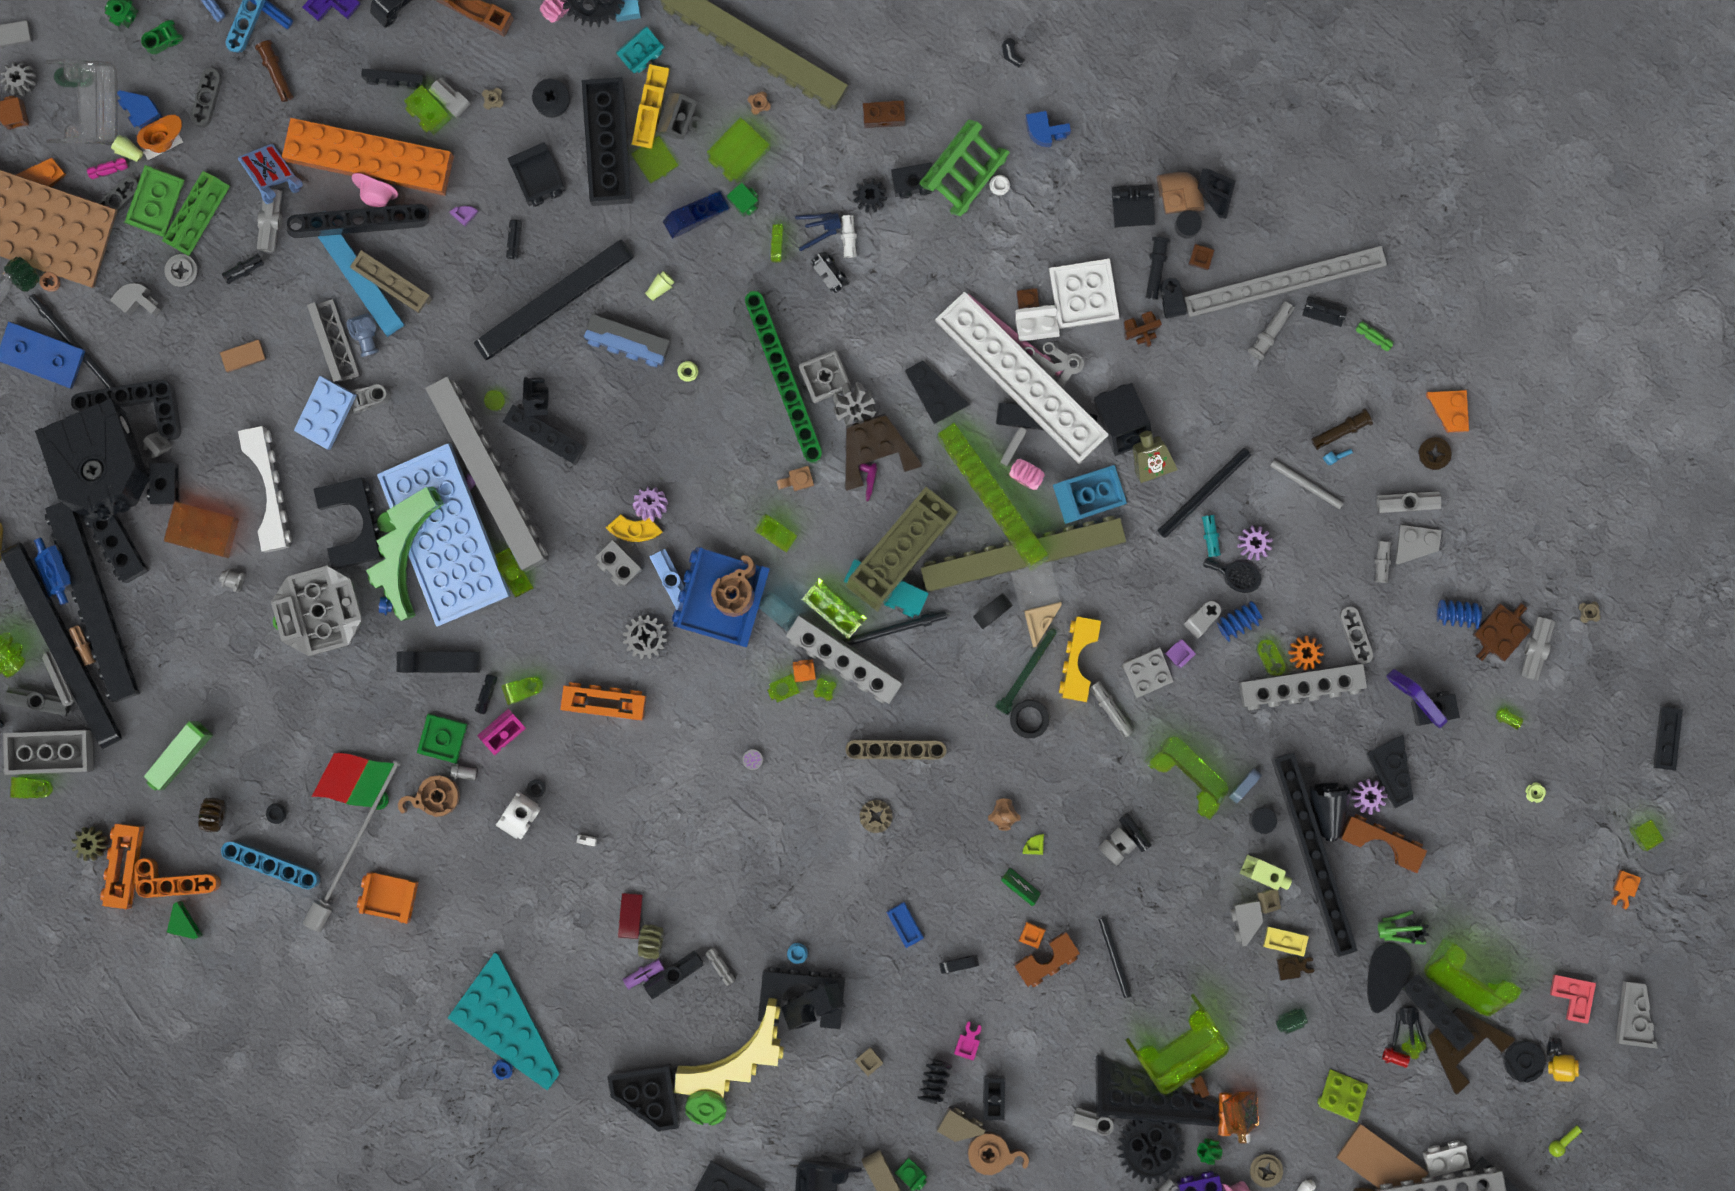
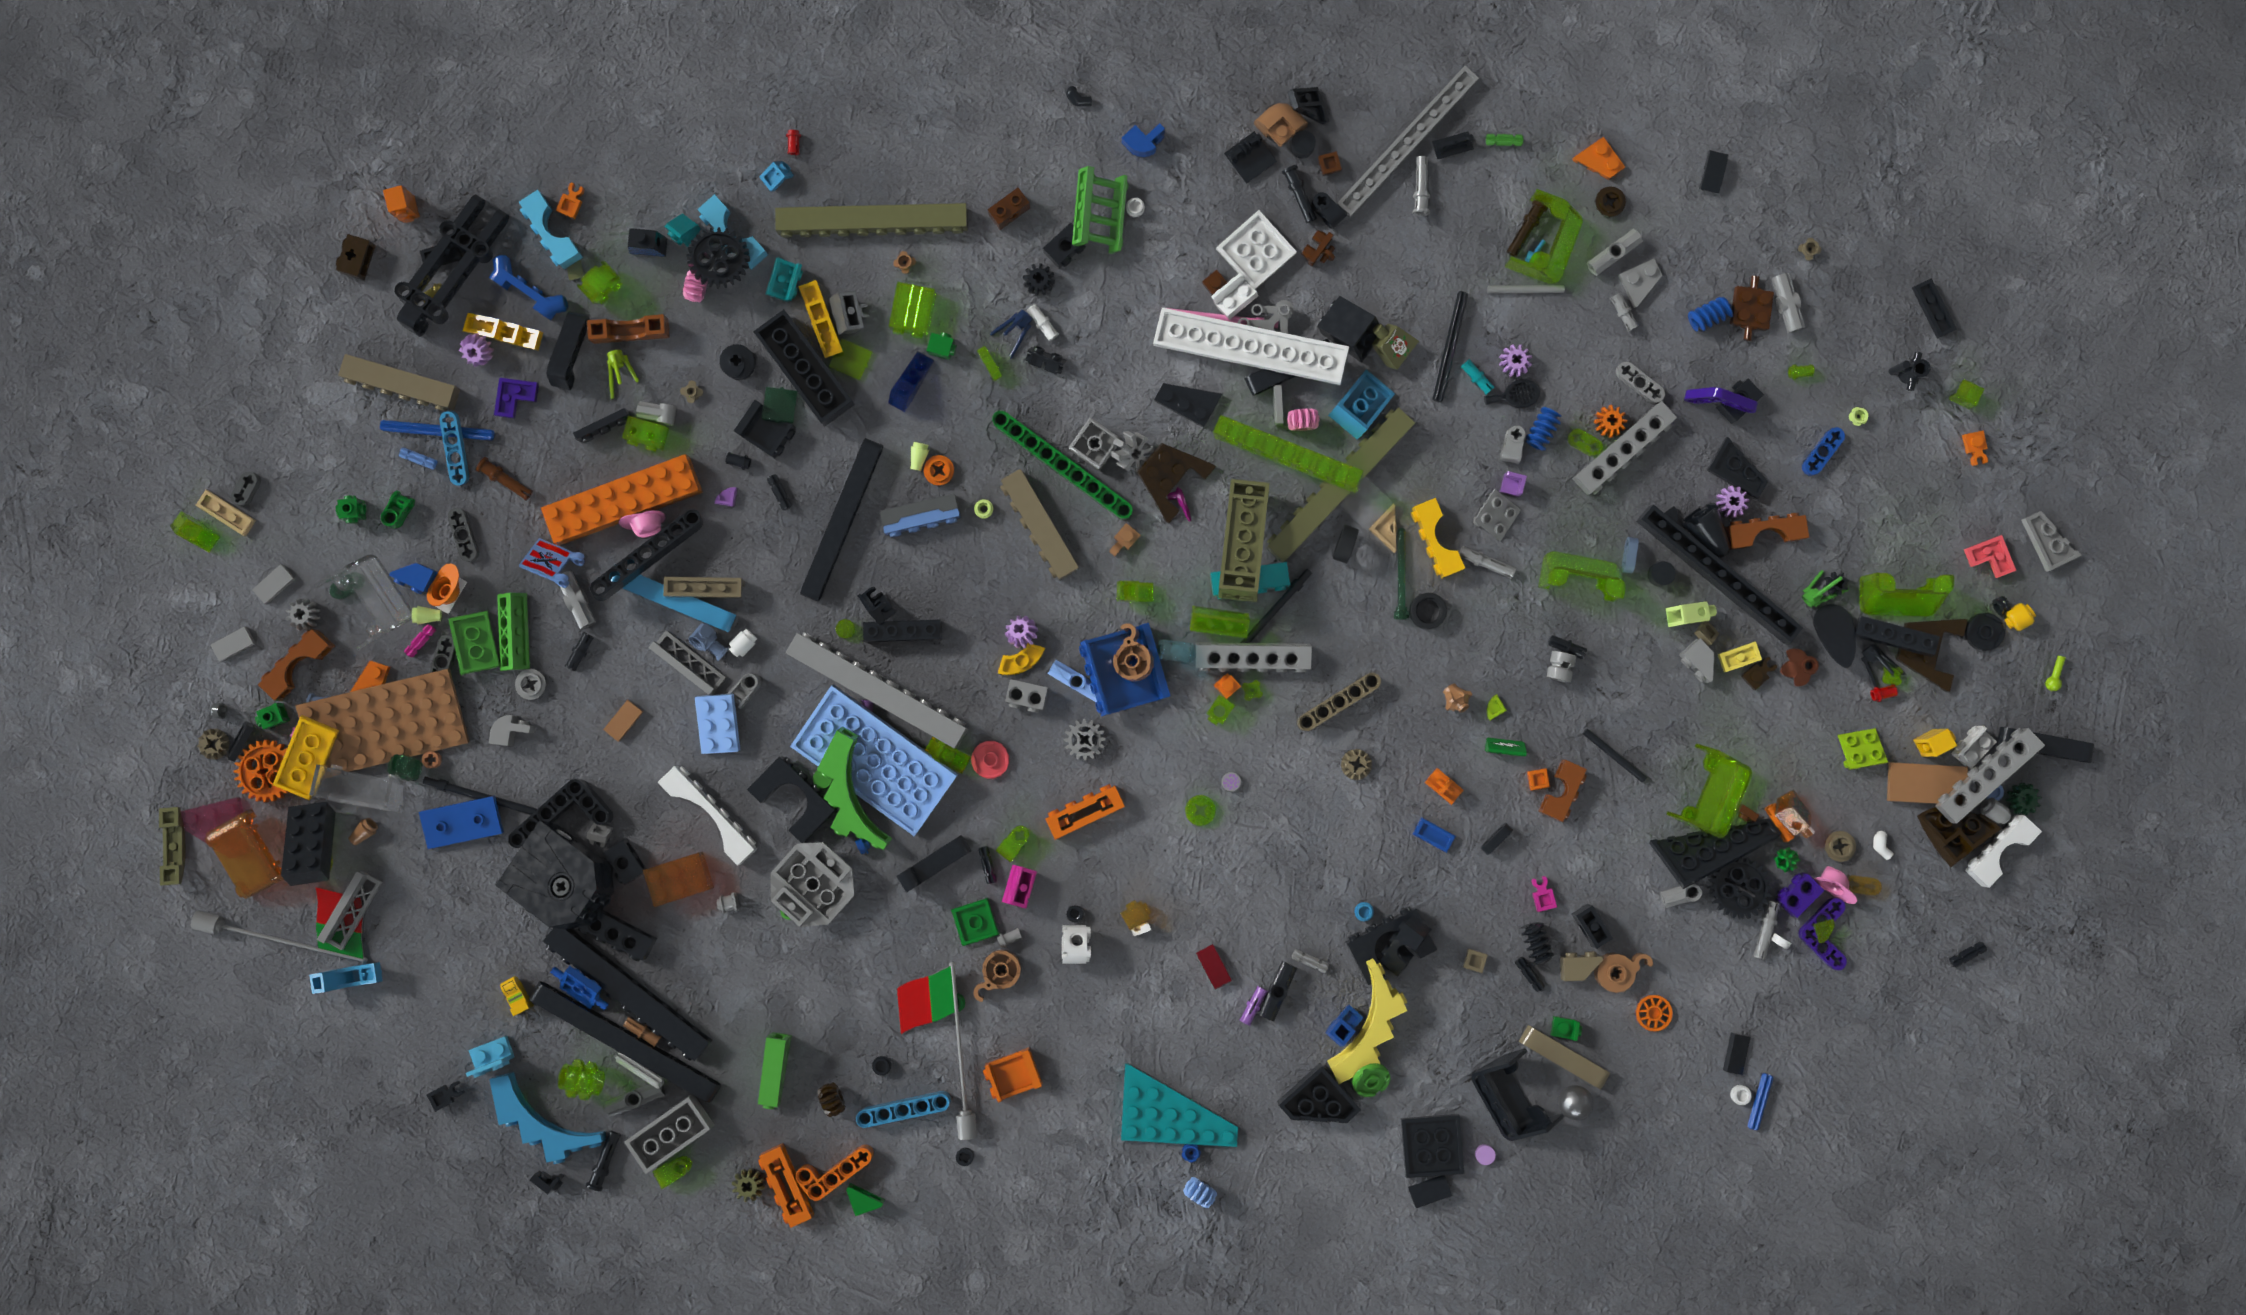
camera: 30 degrees left, 0 degrees up
(303, 938) = (966, 1151): none -> black bush
(393, 354) = (742, 643): none -> white brick
(442, 28) = (615, 361): none -> lime plant
(487, 1109) = (1200, 1192): none -> light blue gear
(495, 187) = (738, 460): none -> black pin
(549, 601) = (990, 759): none -> coral tile
(564, 160) = (779, 405): none -> clear green piece
(590, 823) = (1135, 914): none -> clear yellow brick
(650, 941) = (1243, 976): olive gear -> none
(661, 306) = (929, 471): none -> orange gear
(713, 1044) = (1343, 1027): none -> blue brick
(714, 759) = (1200, 800): none -> clear neon green gear
(728, 417) = (1039, 524): none -> dark tan brick
(910, 1105) = (1529, 974): none -> black axle
(941, 886) = (1444, 786): none -> orange hips
(1291, 1021) = (1784, 716): clear green brick -> none
(1331, 983) = (1796, 668): none -> copper plate
(1342, 478) = (1551, 266): none -> clear neon green windscreen
(1412, 1131) = (1935, 742): none -> yellow brick
(1470, 814) = (1831, 450): none -> blue beam
(1547, 486) = (1714, 171): none -> black slope
(1604, 779) = (1911, 371): none -> black pin

